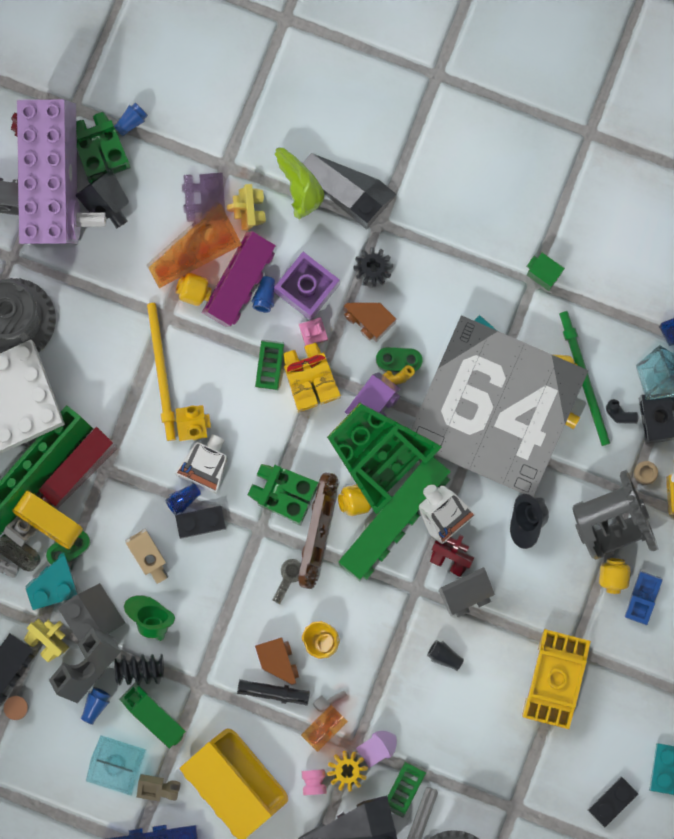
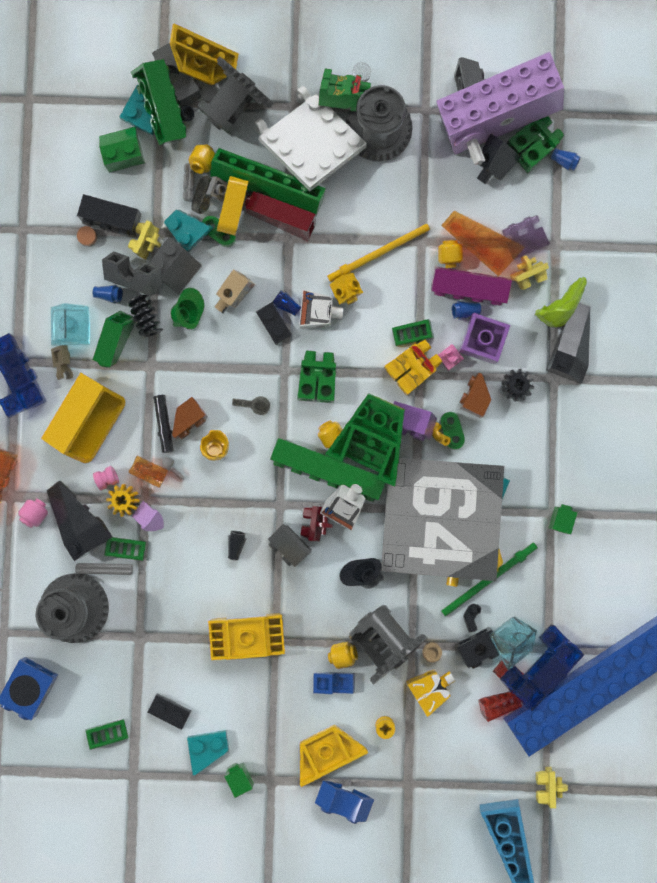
camera: 75 degrees right, 5 degrees up
(318, 530) = (297, 414): reddish brown piece -> none

